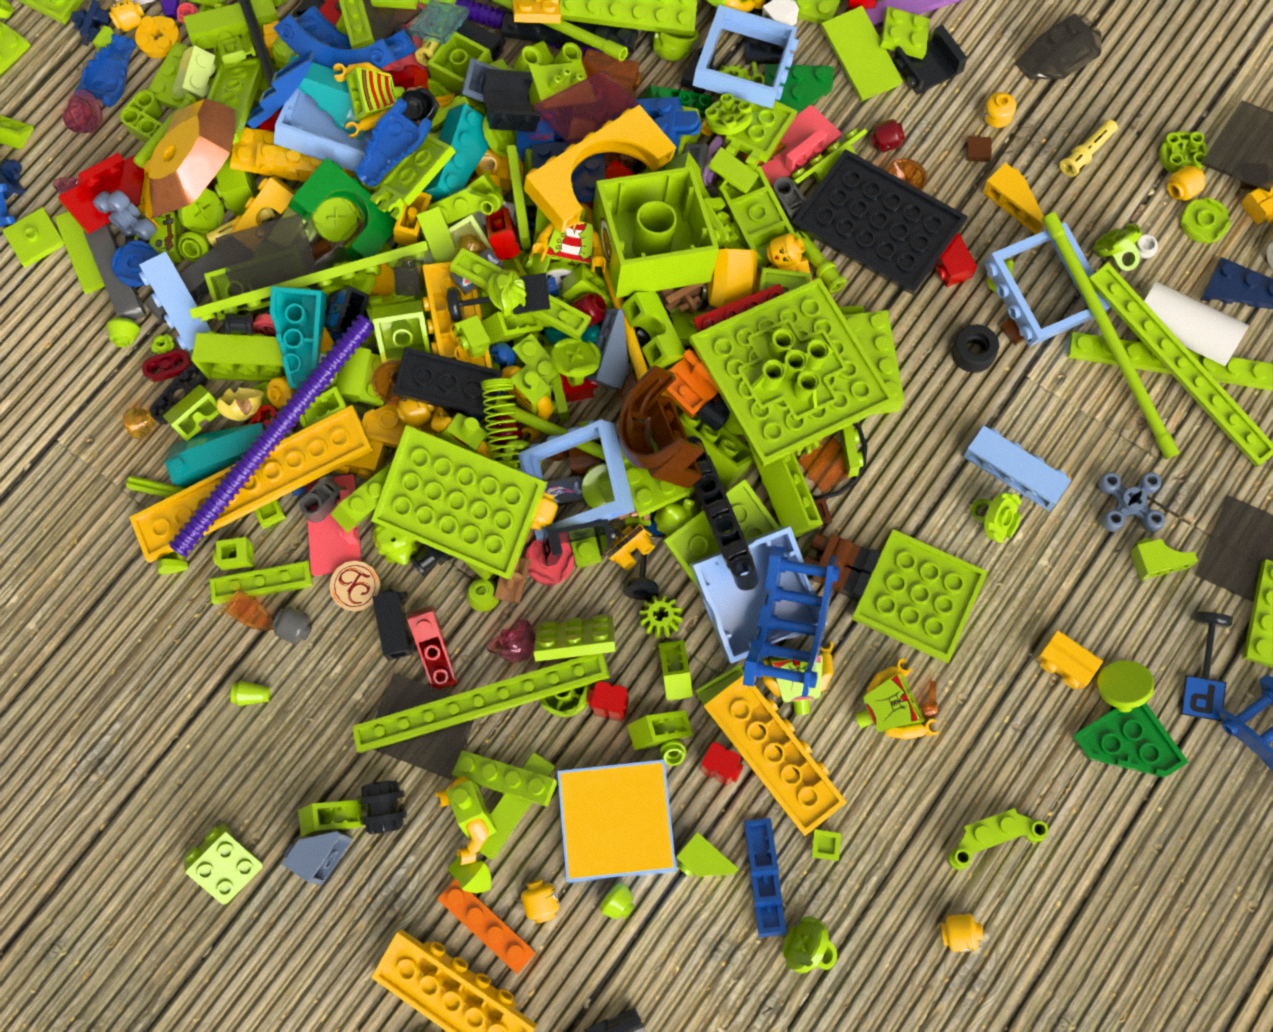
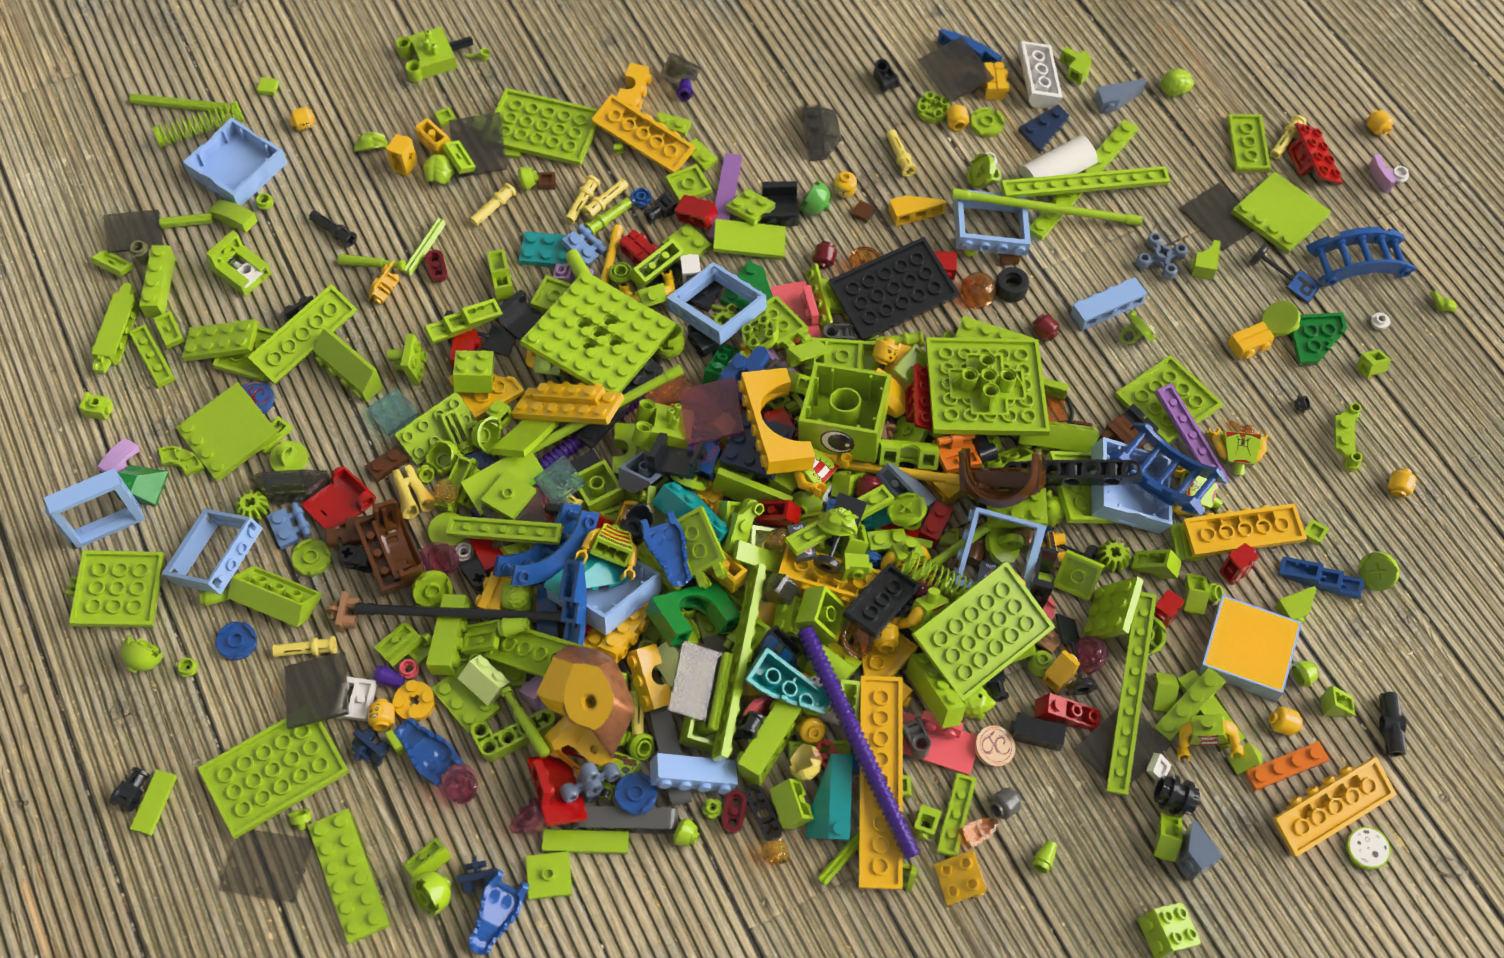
camera: 70 degrees left, 10 degrees down
(189, 616) = (960, 877): none -> yellow hinge
(248, 60) = (512, 626): none -> lime cone
(267, 279) = (720, 692): none -> lime axle
(411, 774) = (1158, 766): none -> white plate
(475, 617) = (1061, 671): none -> yellow slope
(515, 744) = (1164, 692): none -> lime slope
(532, 605) = (1069, 635): none -> black piece
(595, 405) = (936, 523): none -> red brick
(597, 960) = (1337, 703): none -> lime slope
(608, 584) = (1078, 575): none -> lime plate
(877, 640) = (1187, 427): none -> medium lavender tile
(935, 411) = (1045, 327): none -> dark red head
(944, 316) = (978, 290): none -> clear orange cylinder
(957, 89) = (816, 199): none -> bright green cylinder
(1011, 761) = (1302, 403): none -> black plate
(1131, 831) = (1373, 363): none -> lime brick
(1192, 78) = (885, 75): none -> black piece
(1202, 821) = (1380, 325): none -> white plate

